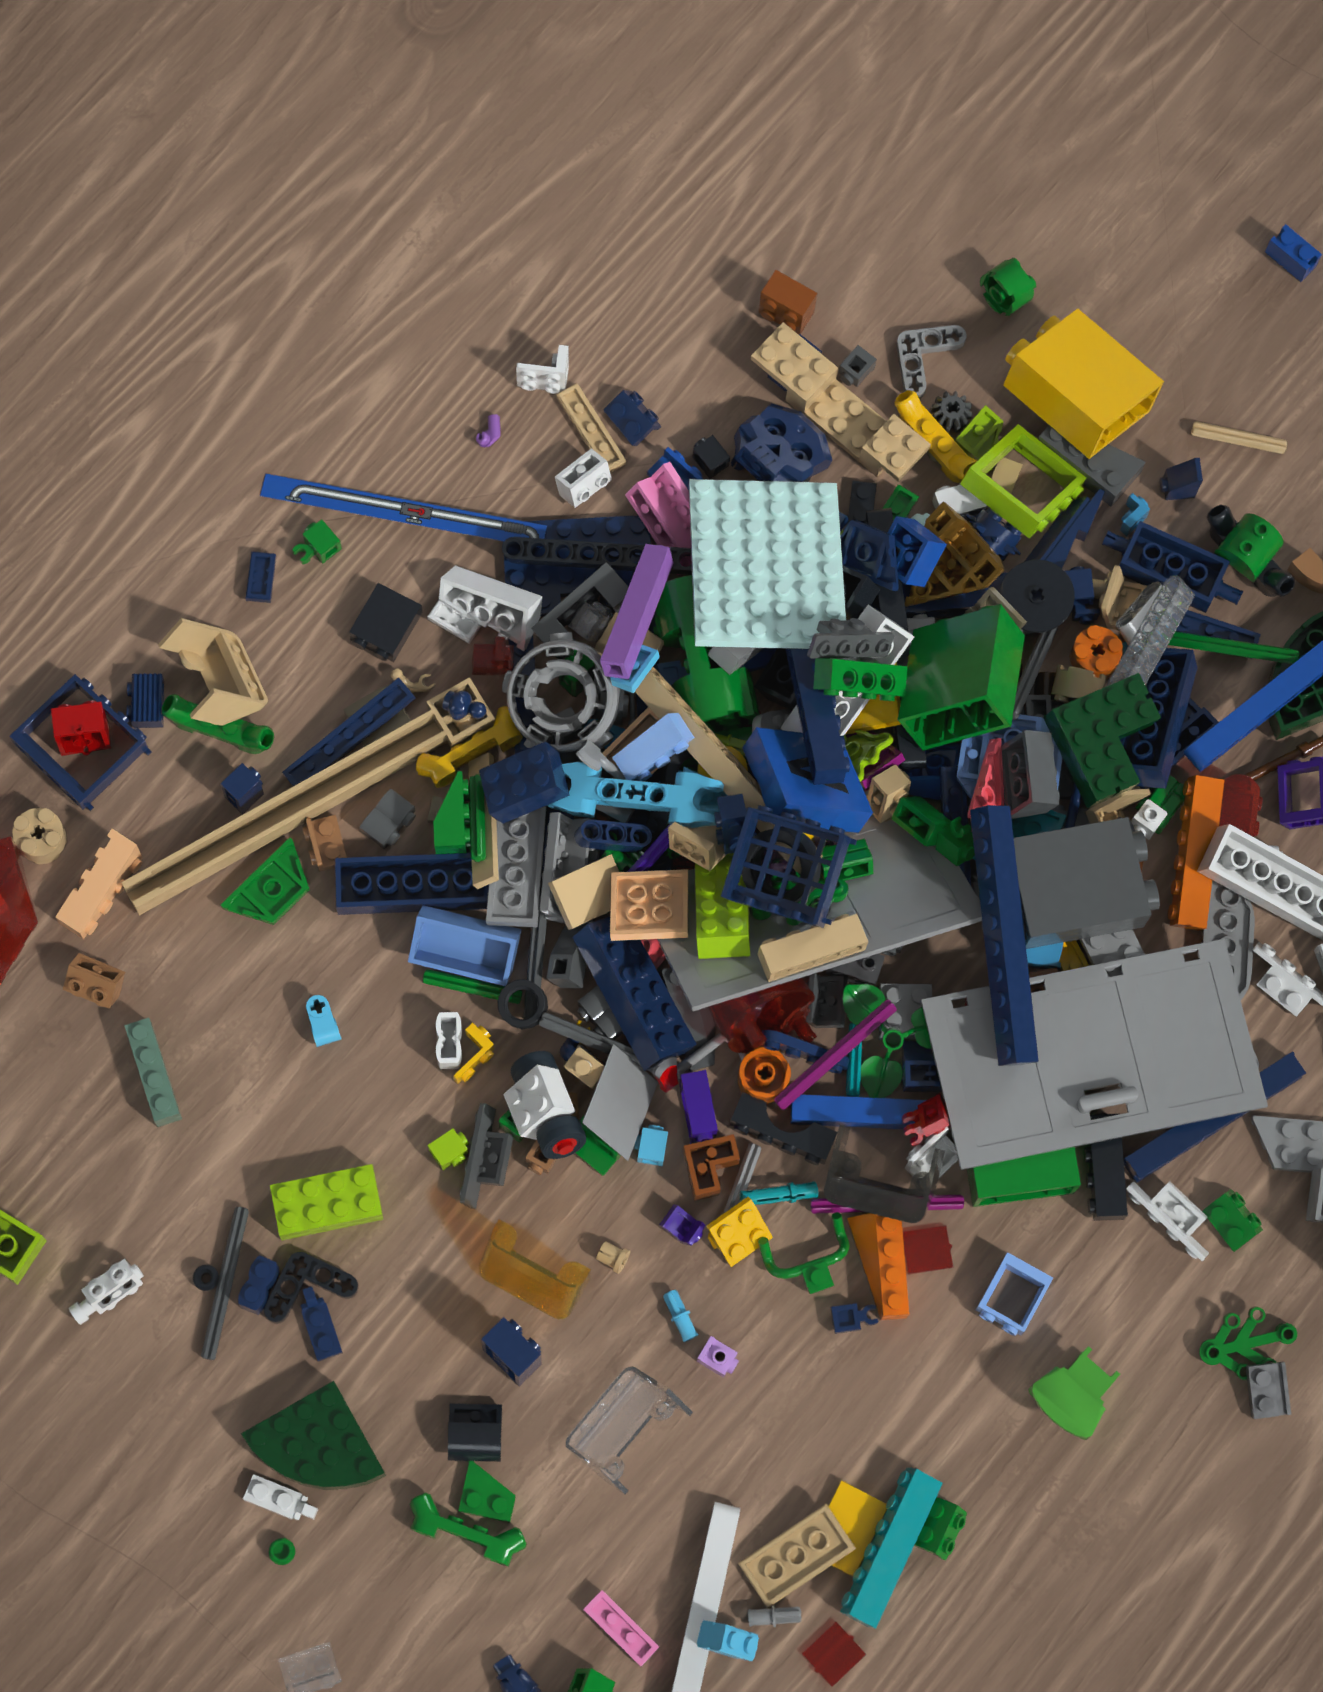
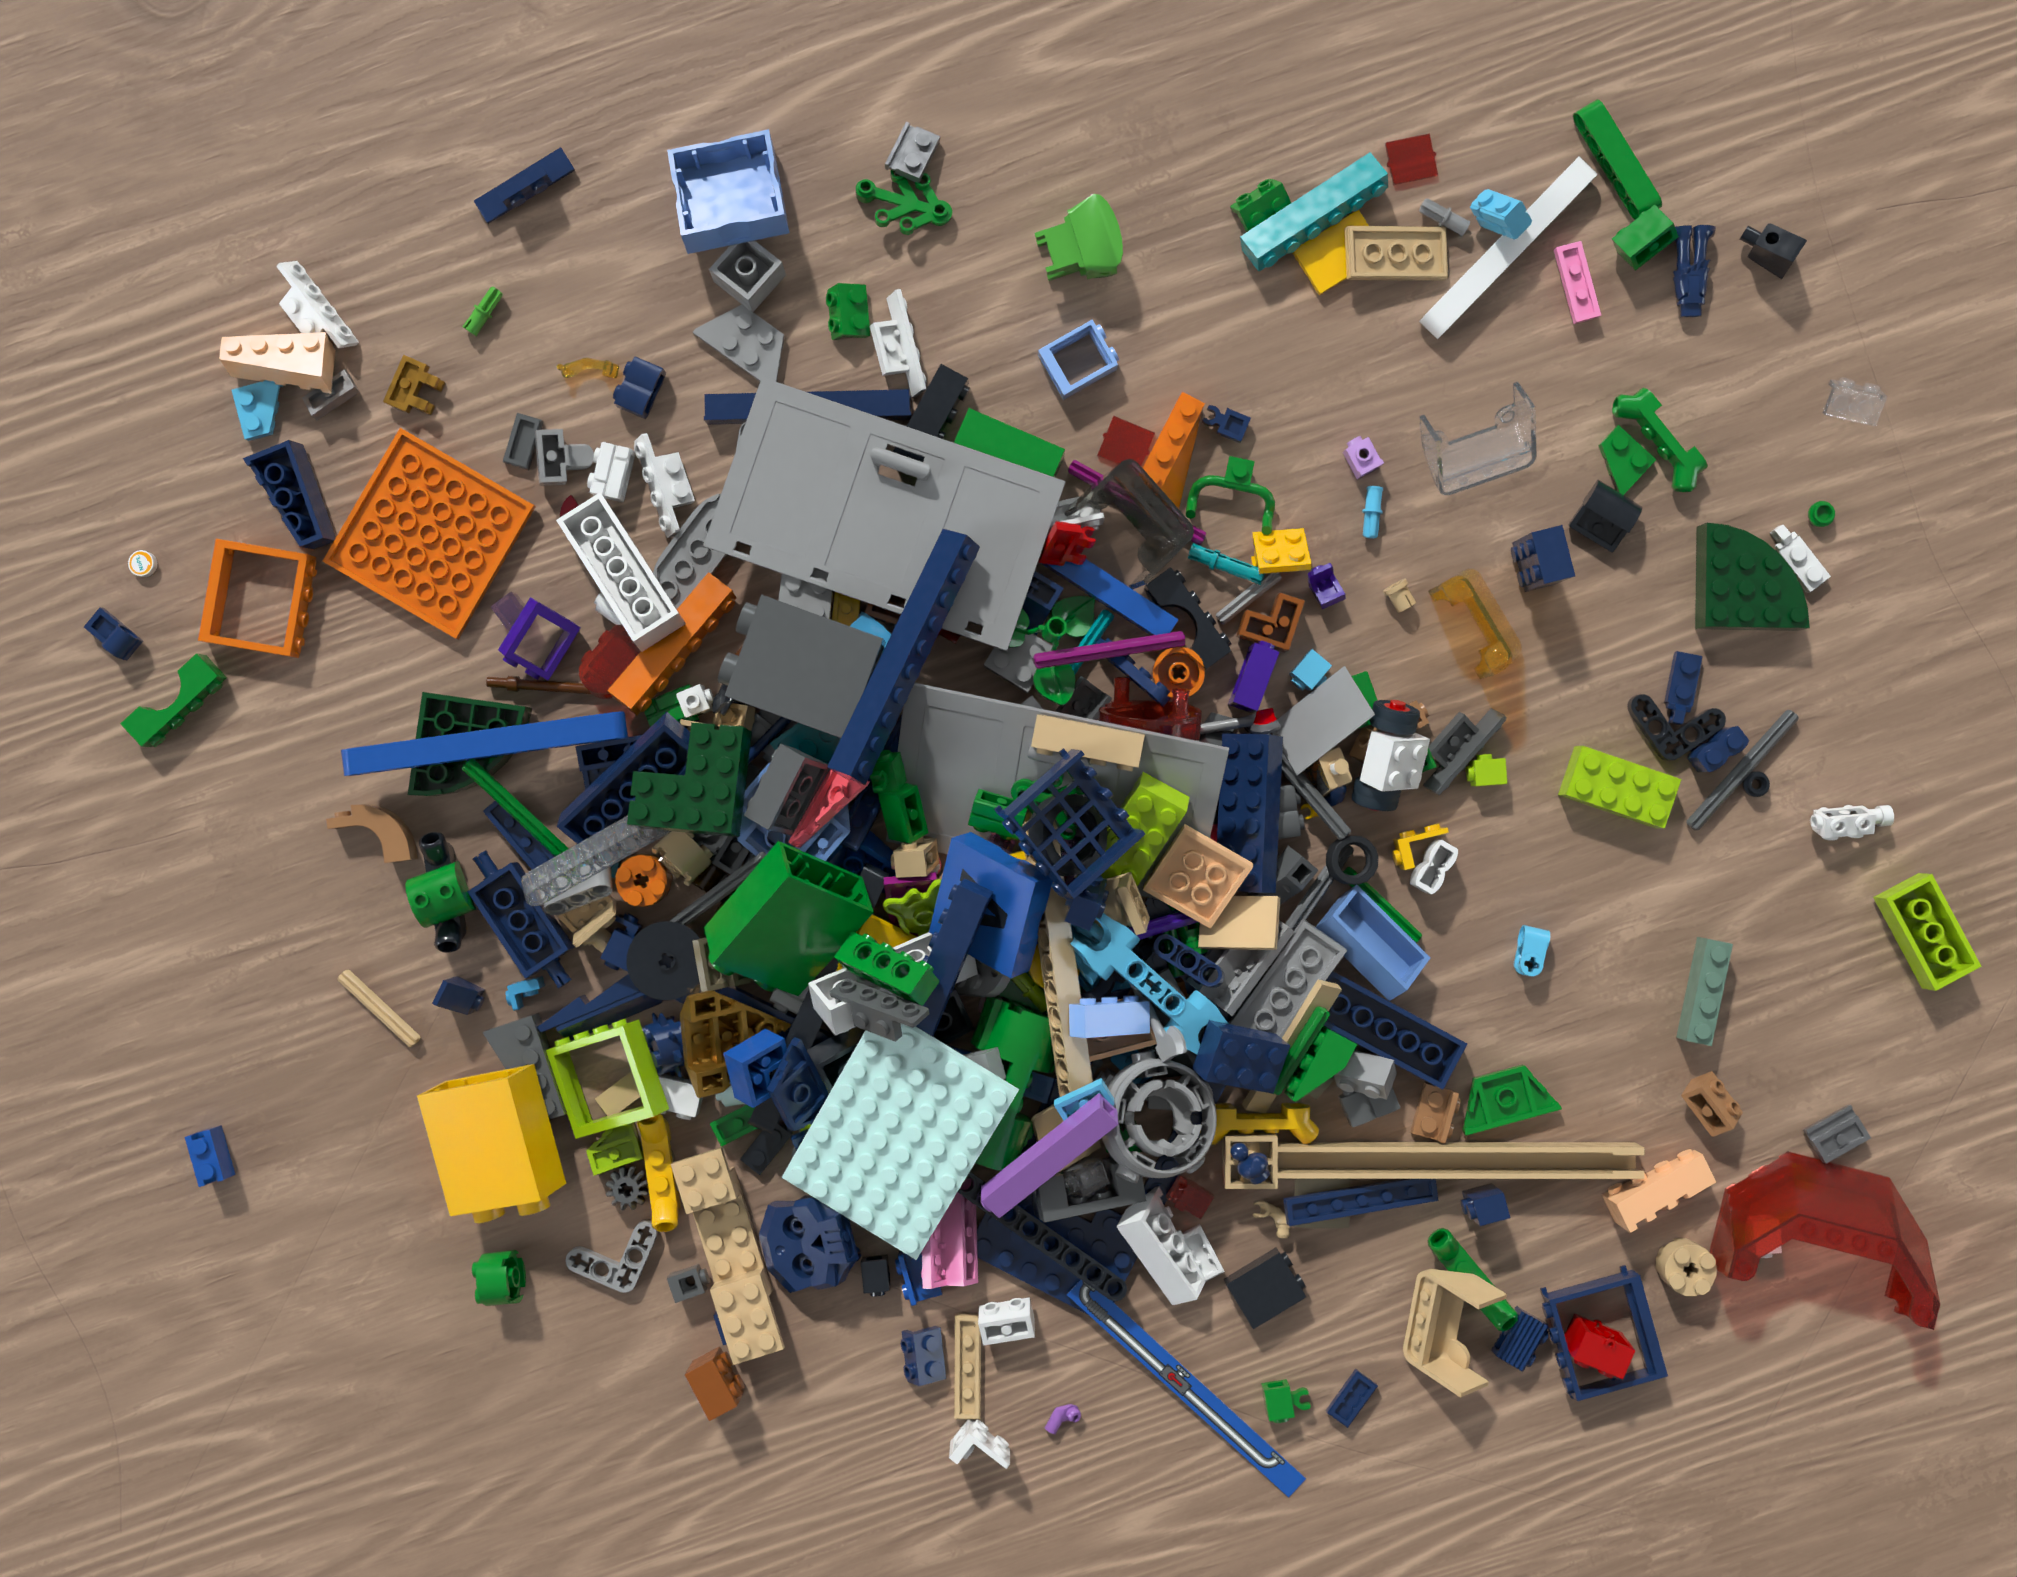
camera: 145 degrees left, 15 degrees up
(406, 835) = (1367, 1075): none -> light grey brick

